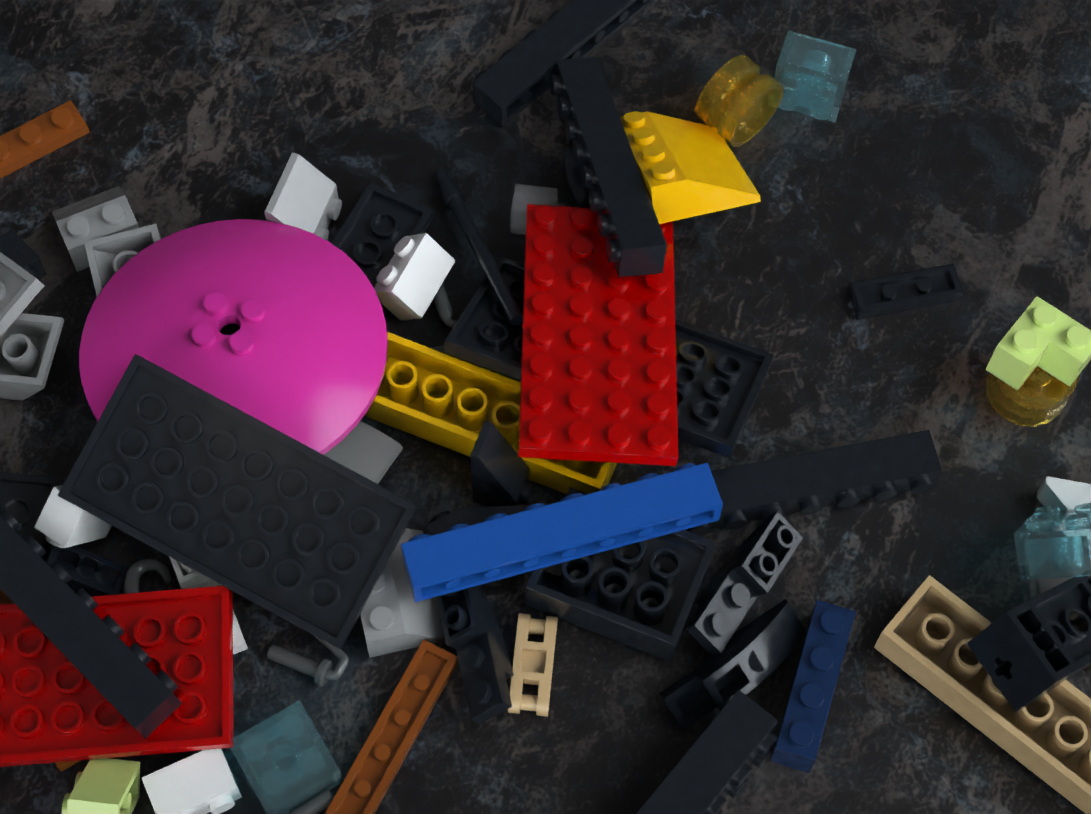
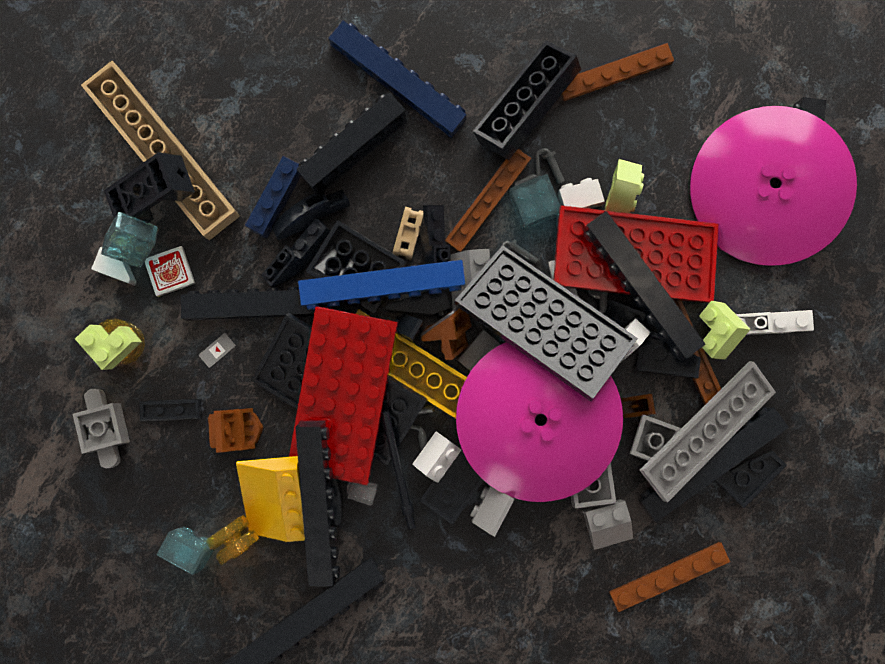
camera: 165 degrees left, 20 degrees up
(56, 416) = (638, 405): none -> reddish brown slope
(427, 476) = (451, 332): none -> dark orange piece
(782, 266) = (234, 430): none -> dark orange piece
(851, 403) = (217, 350): none -> light grey sticker
(977, 522) = (169, 271): none -> tile
(1030, 232) = (101, 428): none -> light grey brick

